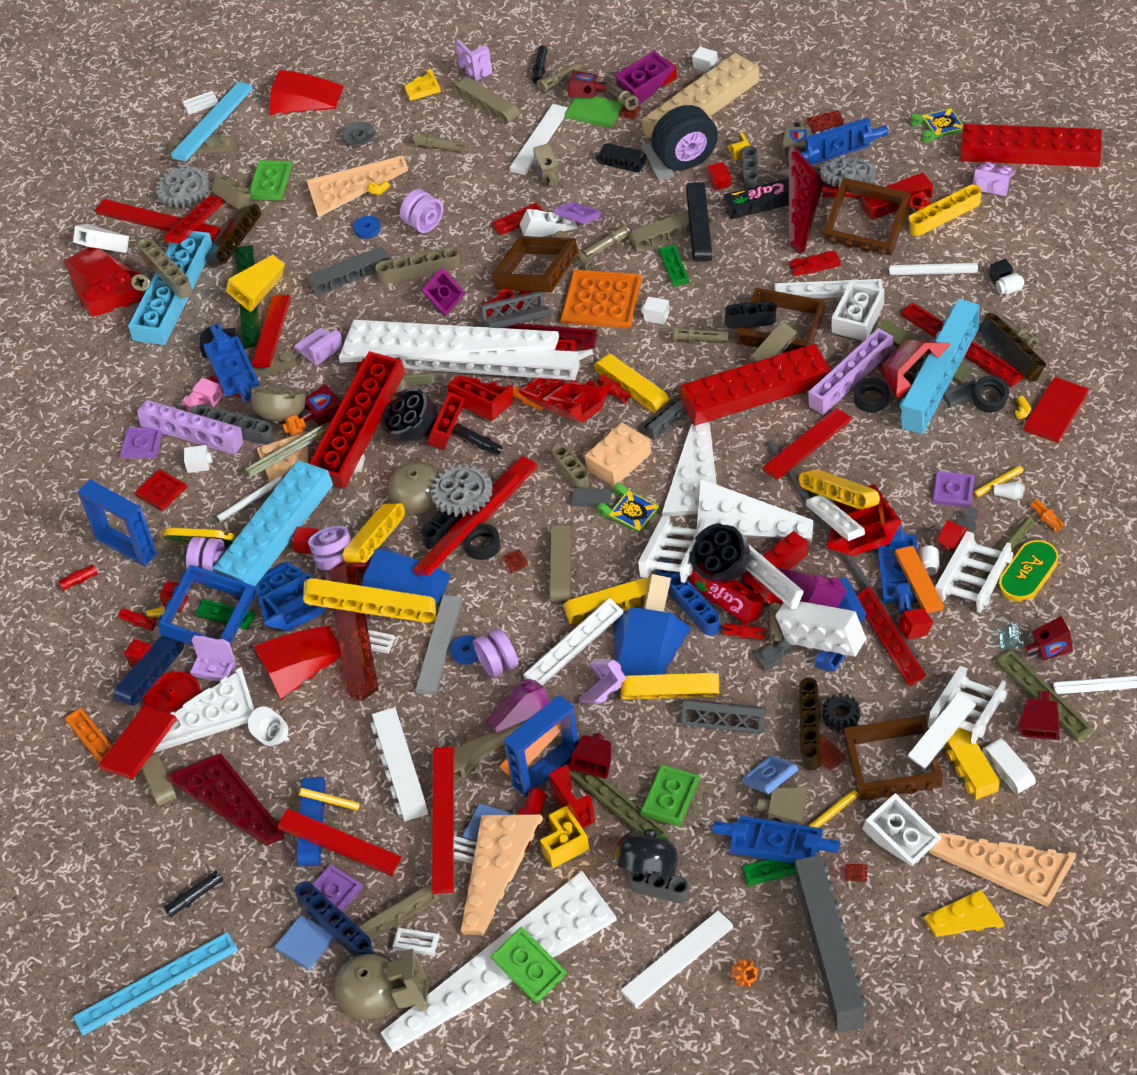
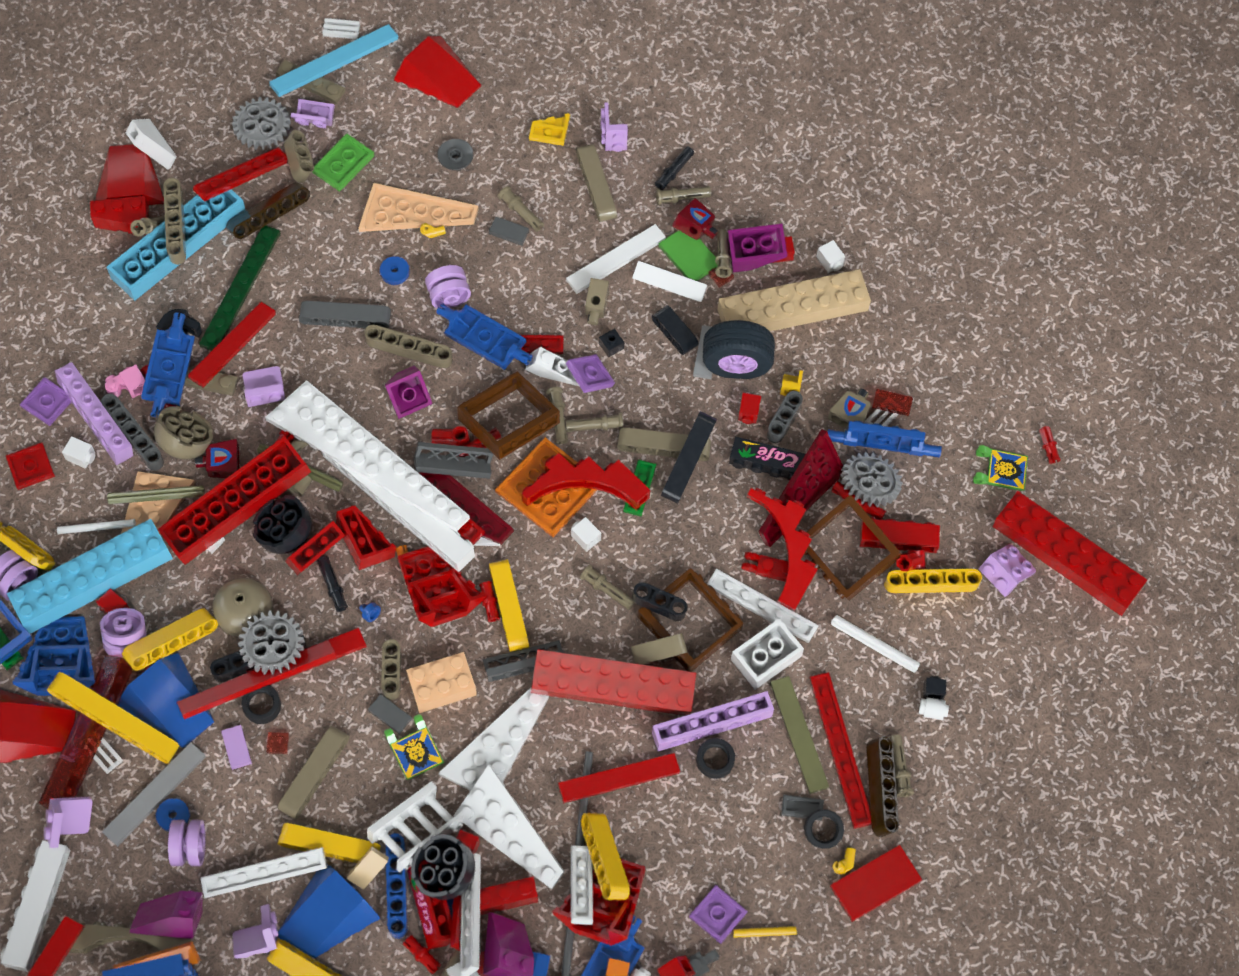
camera: 20 degrees right, 15 degrees up
(147, 217) = (214, 144): red tile -> none
(222, 160) = (314, 112): none -> lavender bracket
(255, 282) = (249, 281): yellow slope -> none
(294, 425) = (182, 468): orange gear -> none
(382, 687) = (67, 817): none -> lavender bracket
(439, 161) = (508, 231): none -> dark grey tile
(474, 229) = (484, 336): none -> blue plate
(483, 580) = (236, 747): none -> lavender tile
(523, 440) = (370, 611): none -> blue tile
(578, 188) = (611, 347): none -> black plate
(593, 131) = (669, 281): none -> white tile
(651, 264) = (587, 474): none -> red arch
(824, 229) = (788, 518): none -> red arch
(903, 358) = (764, 746): wedge -> none
(937, 373) = (794, 771): medium azure brick -> none
(962, 92) = (1049, 445): none -> red axle
(1010, 490) = (767, 952): white cone -> none

